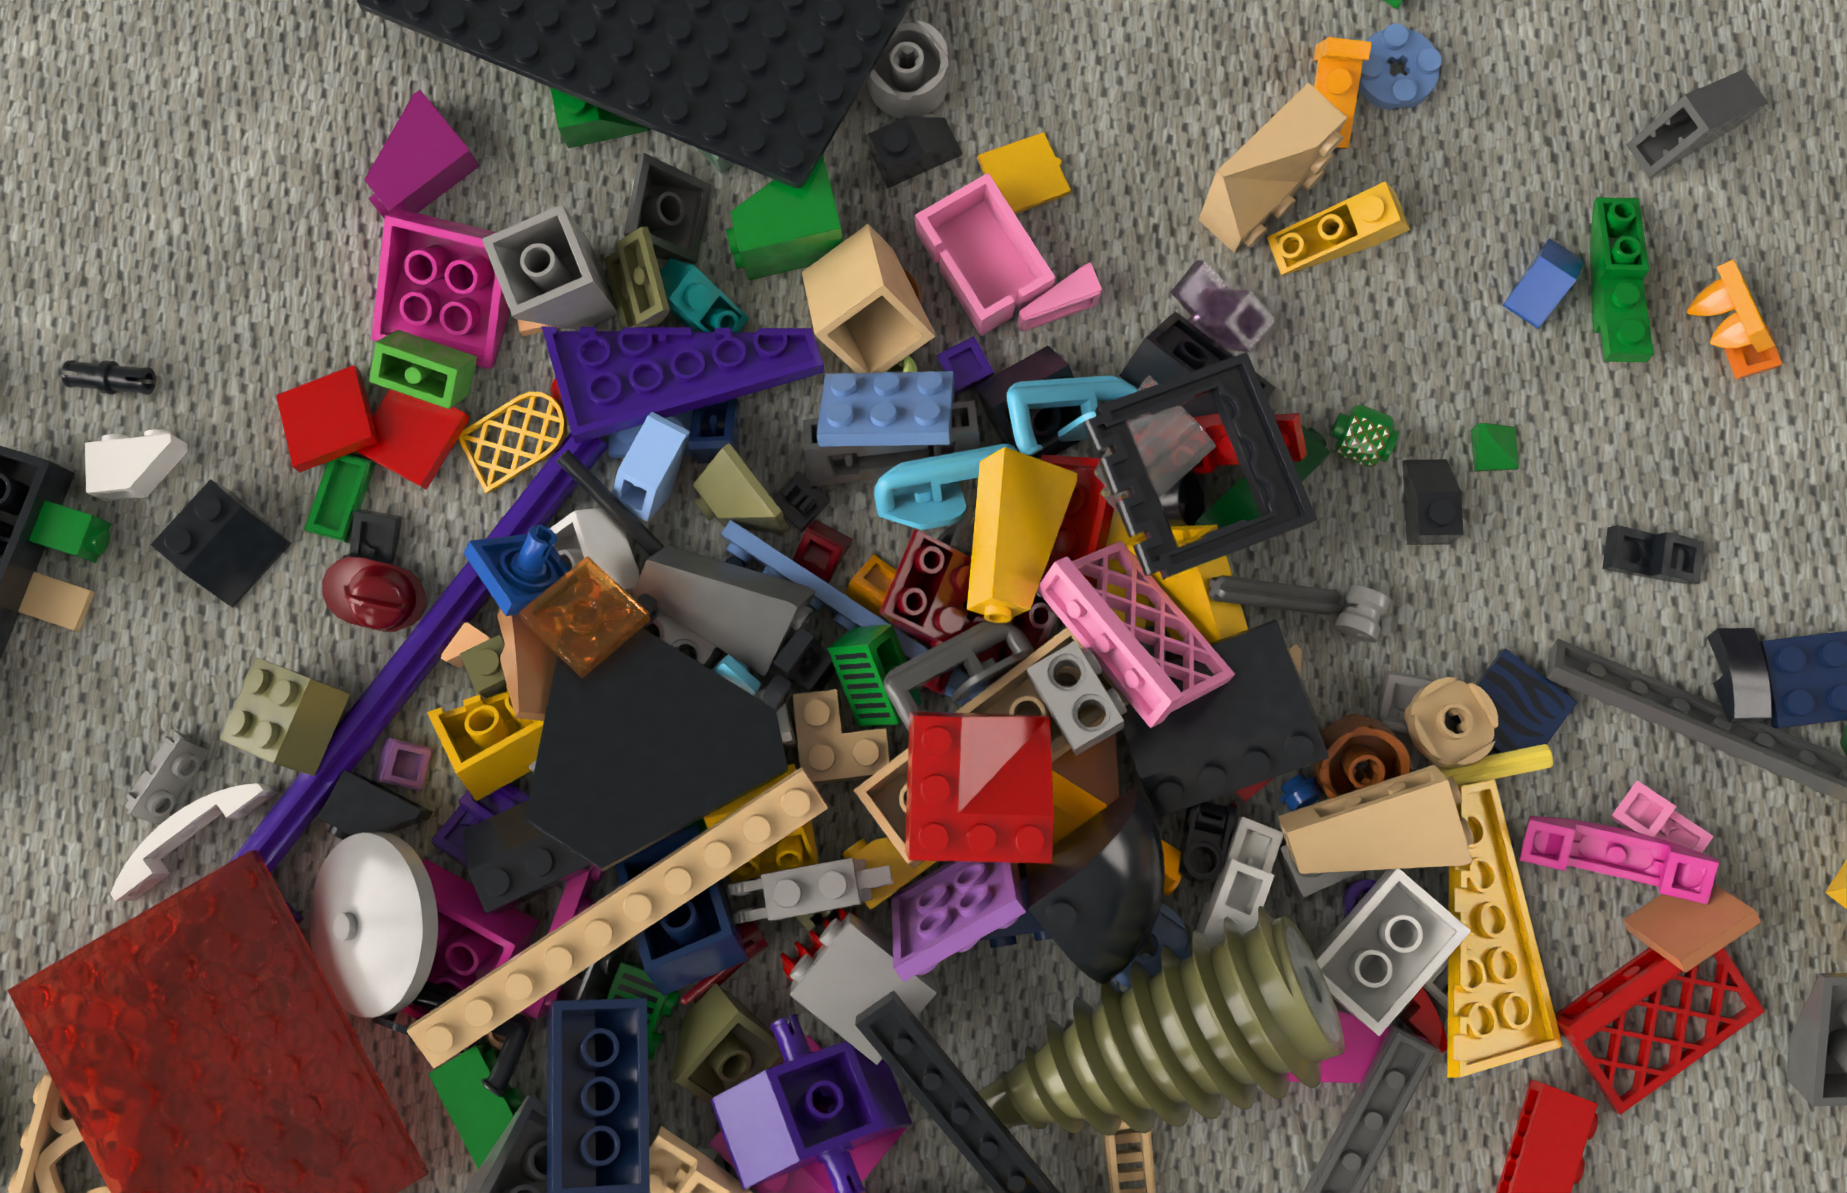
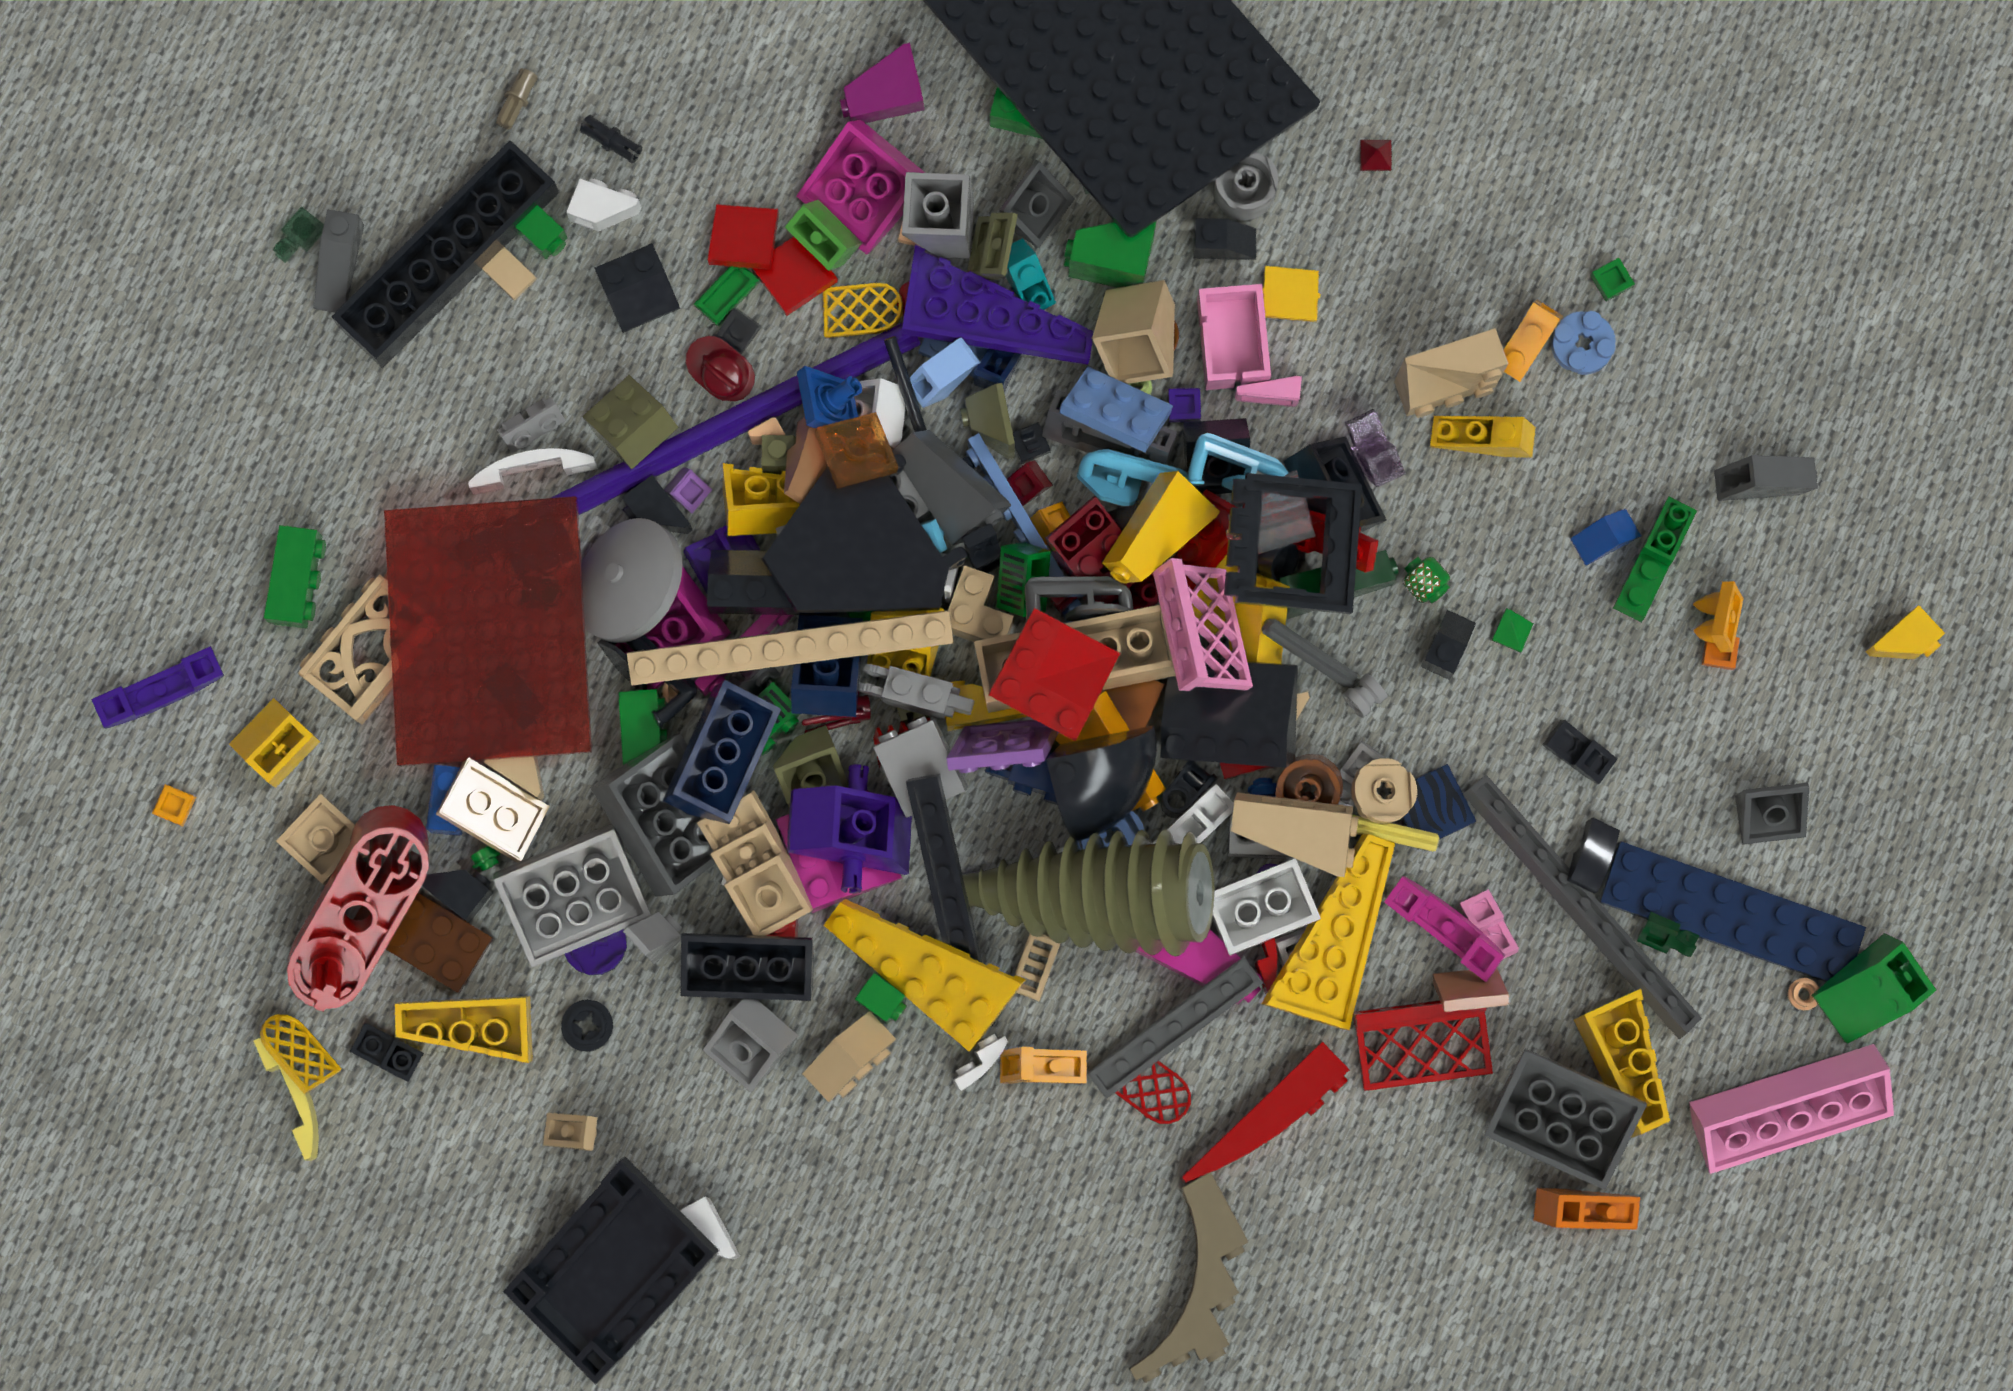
camera: 20 degrees right, 0 degrees up
(1067, 702) = (1137, 649): light grey brick -> none

